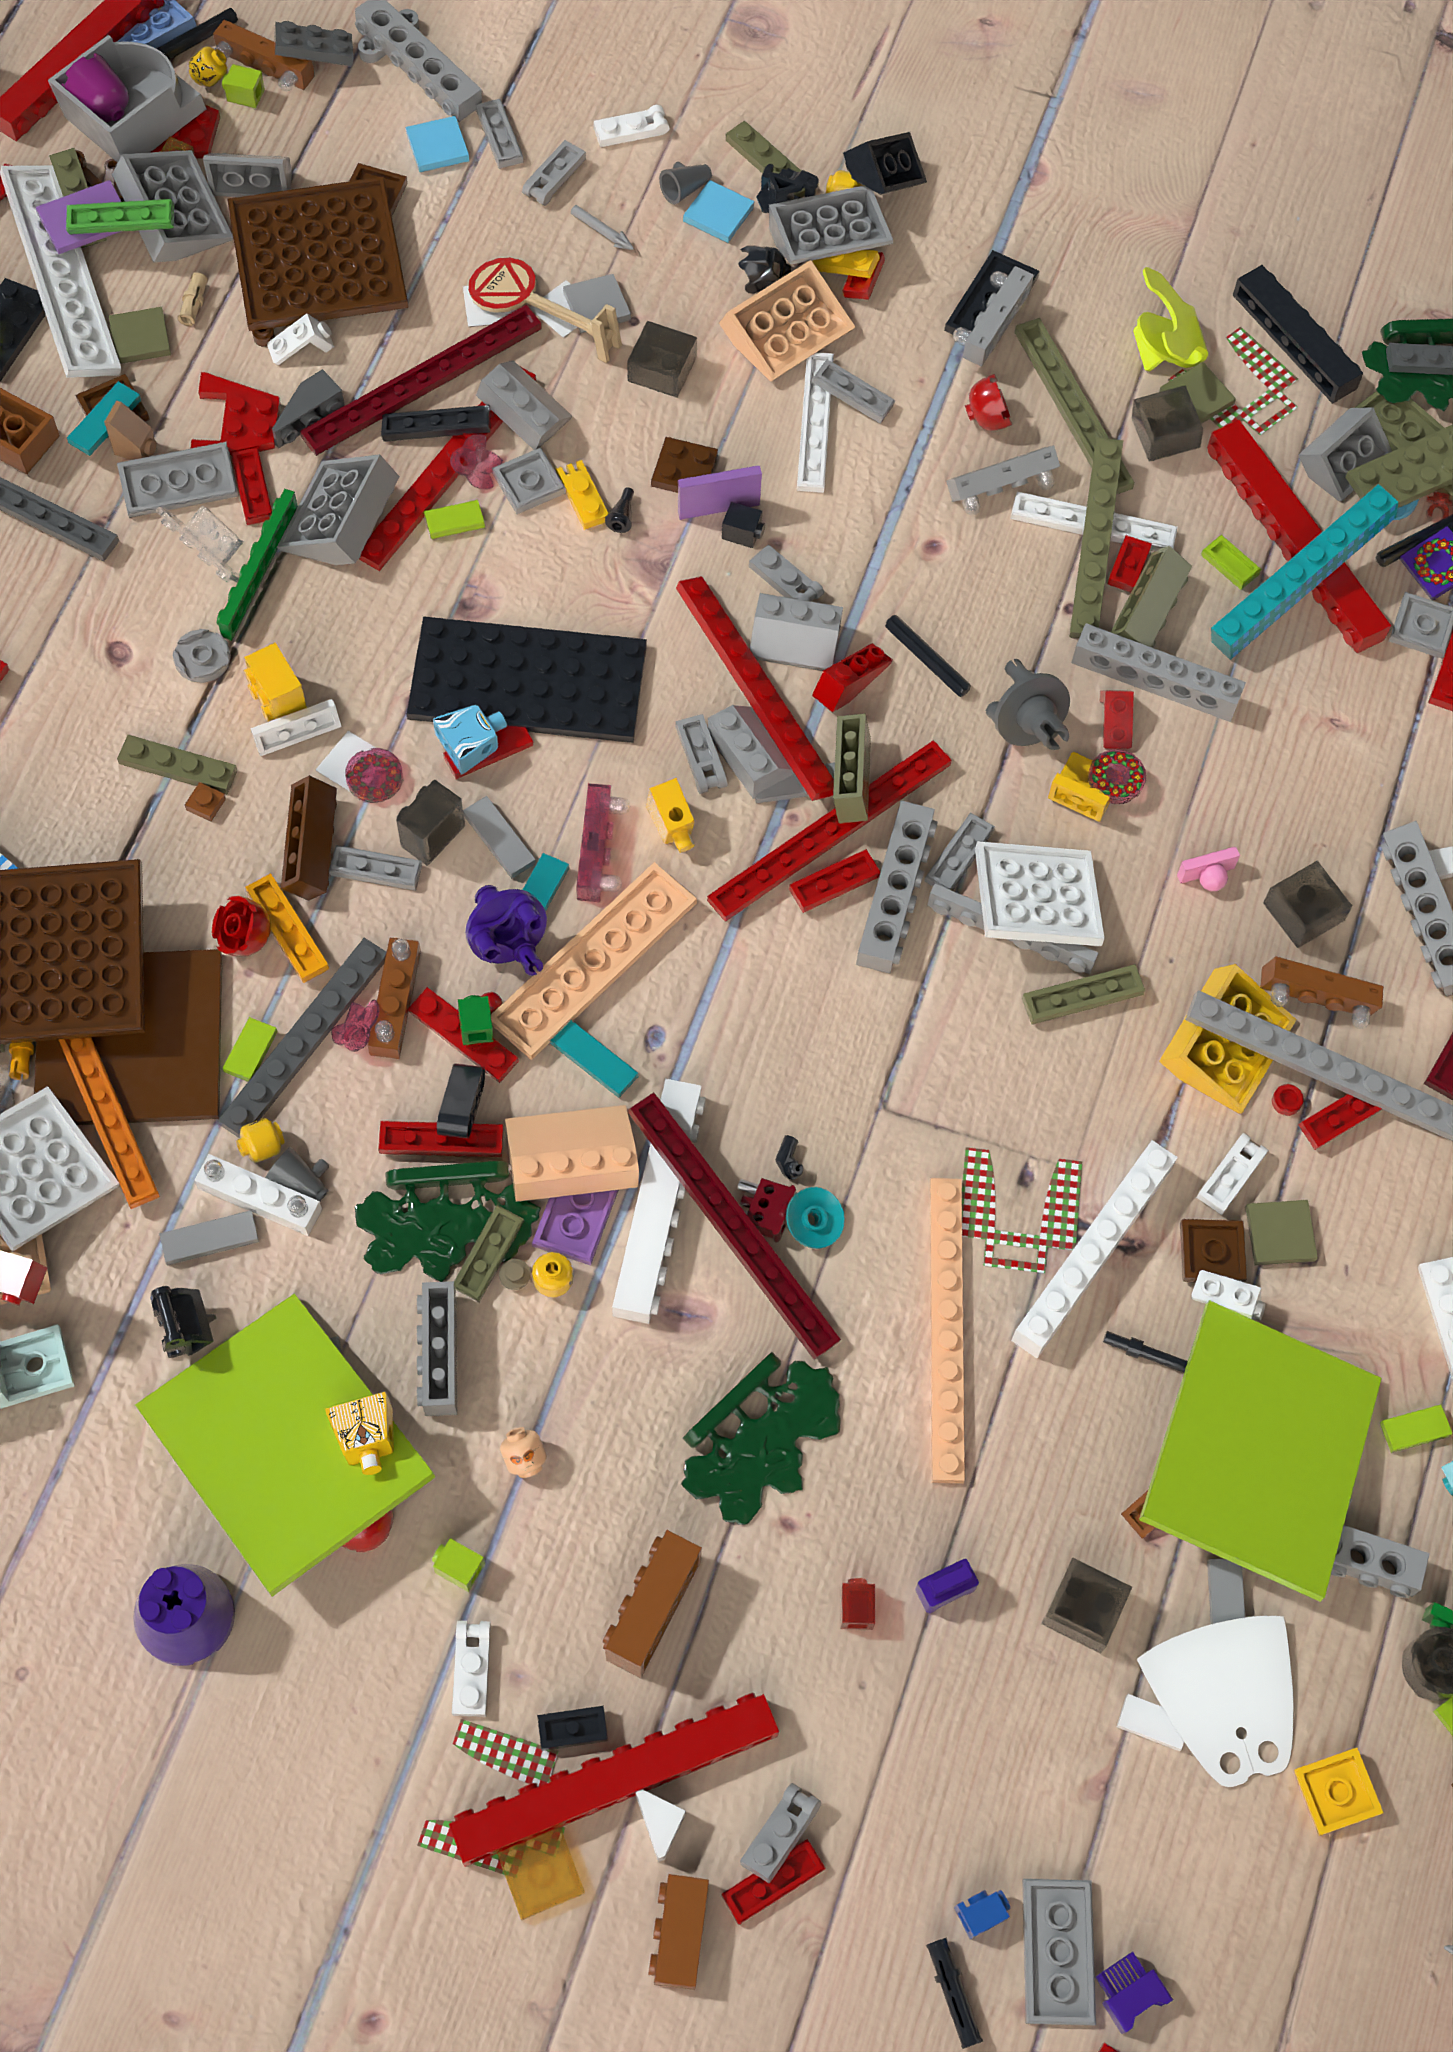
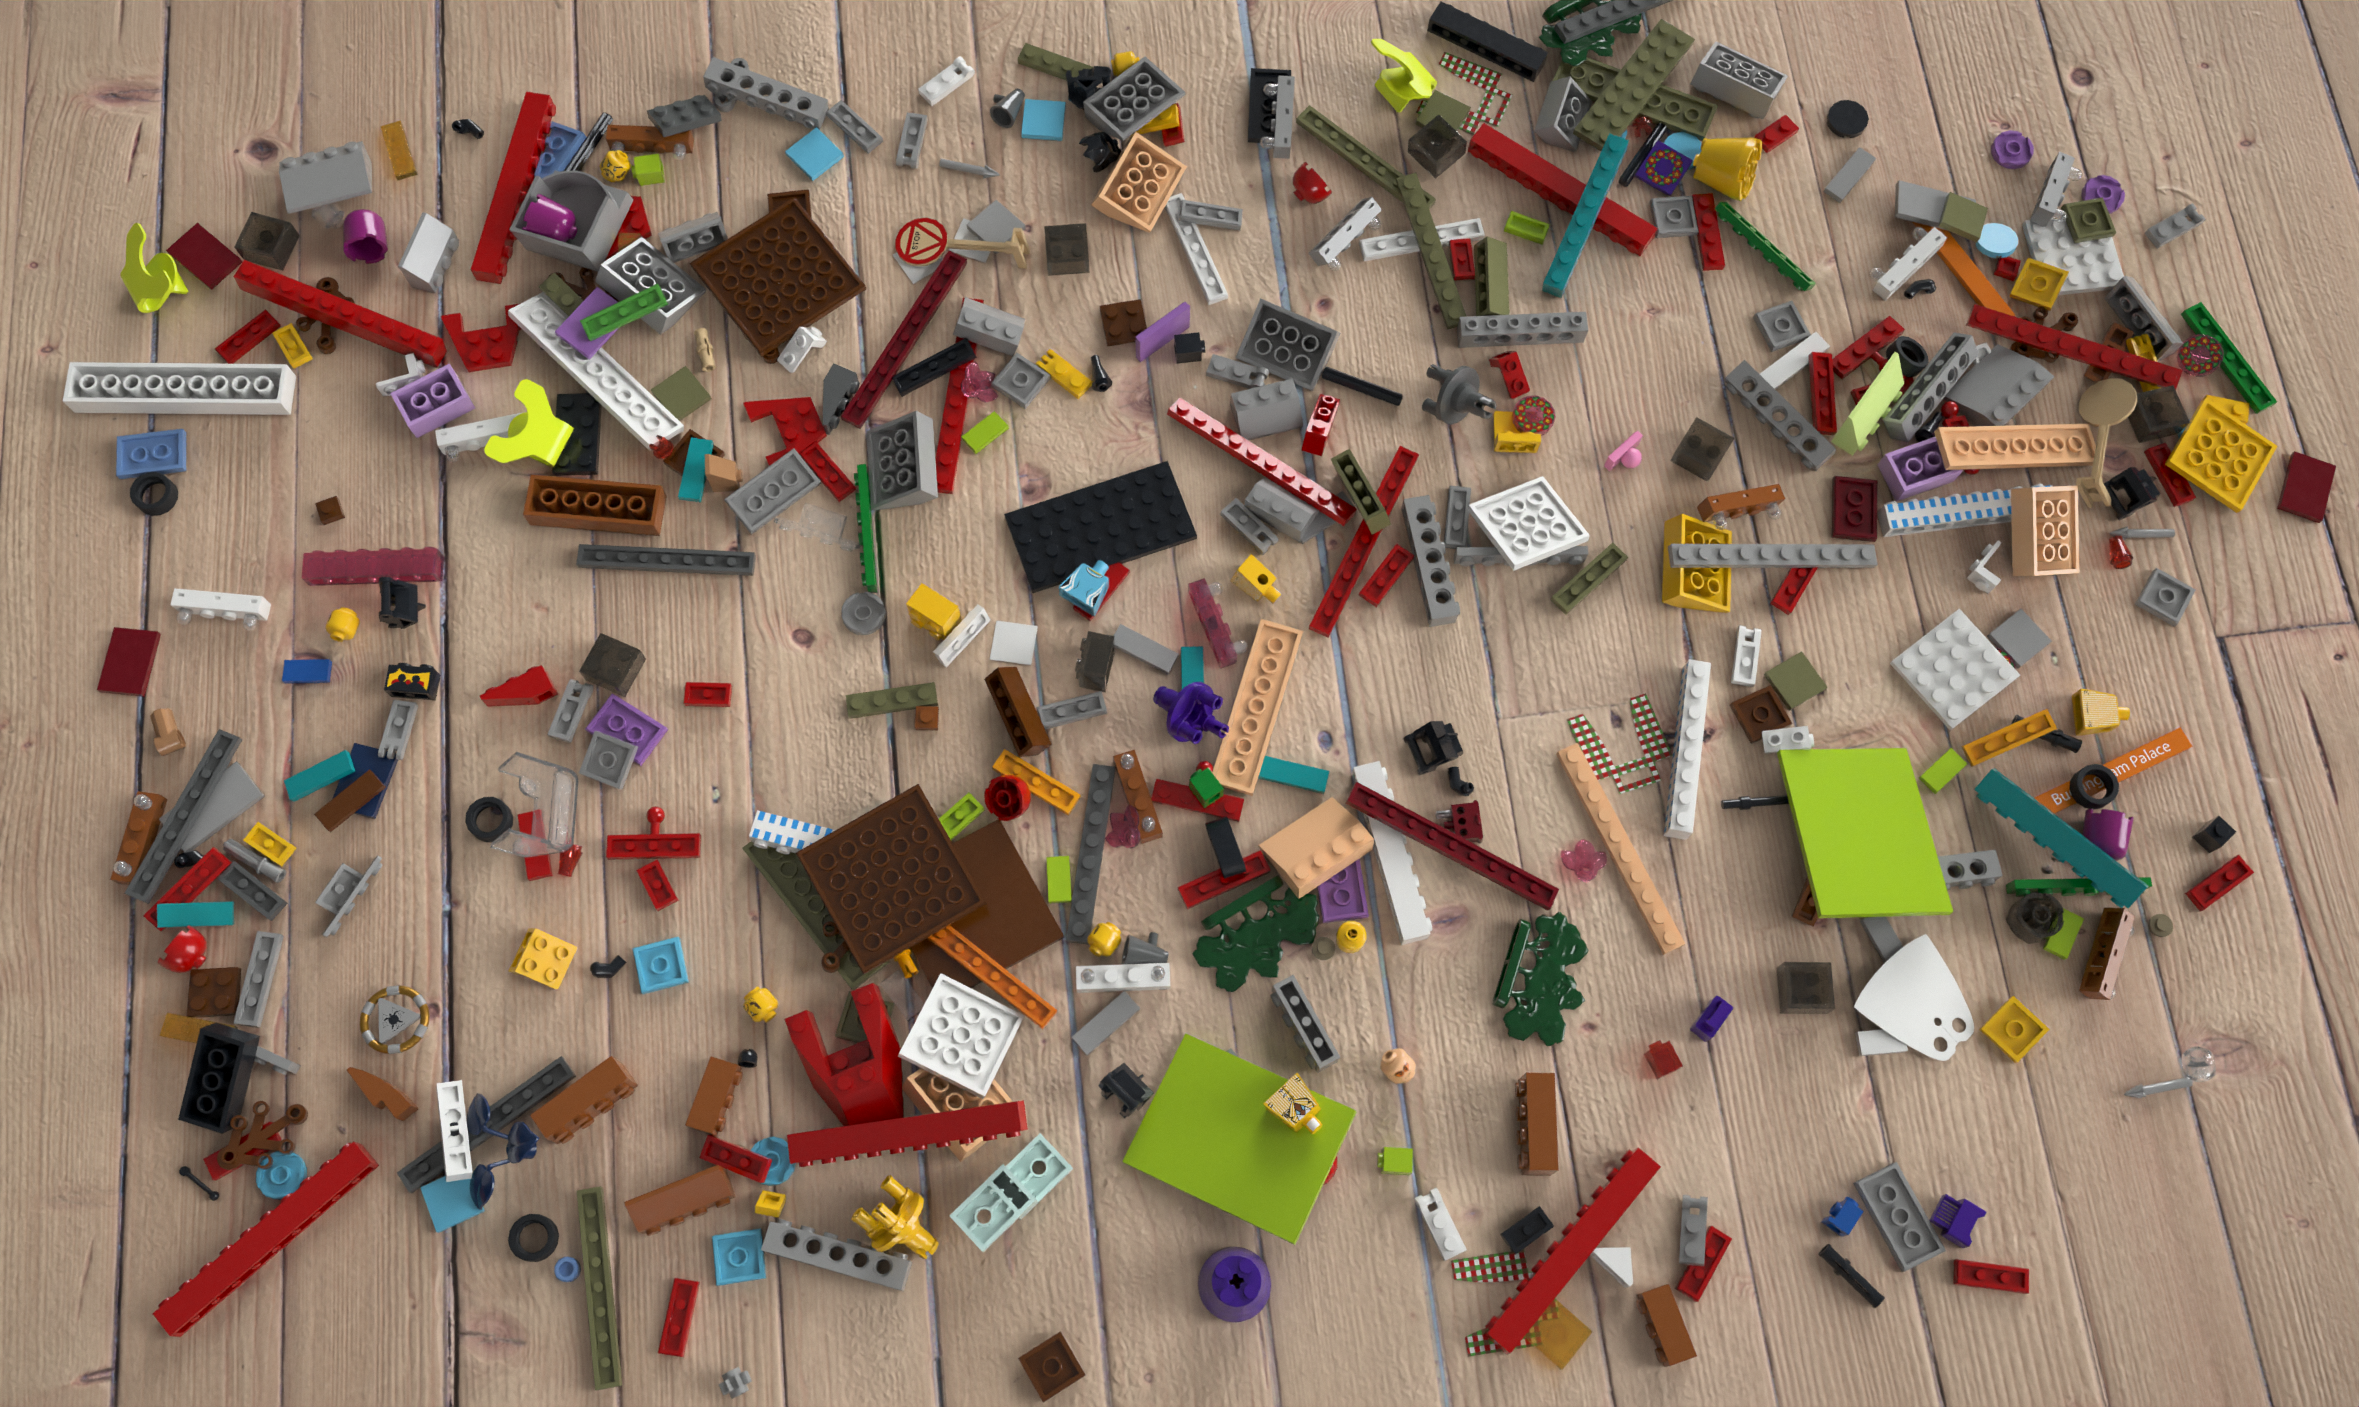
camera: 25 degrees left, 5 degrees up
(82, 382) = (664, 448): none -> clear red plate
(175, 926) = (961, 815): none -> lime plate
(374, 775) = (1033, 644): clear pink tile -> none
(488, 1253) = (1299, 942): olive tile -> none
(791, 1100) = (1441, 741): none -> black piece
(827, 1215) = (1506, 812): teal dish -> none
(863, 570) = (1287, 344): none -> light grey slope
(886, 164) = (1147, 36): black slope -> none
(895, 1318) = (1584, 857): none -> clear pink plate
(1287, 1099) = (1754, 589): red tile -> none

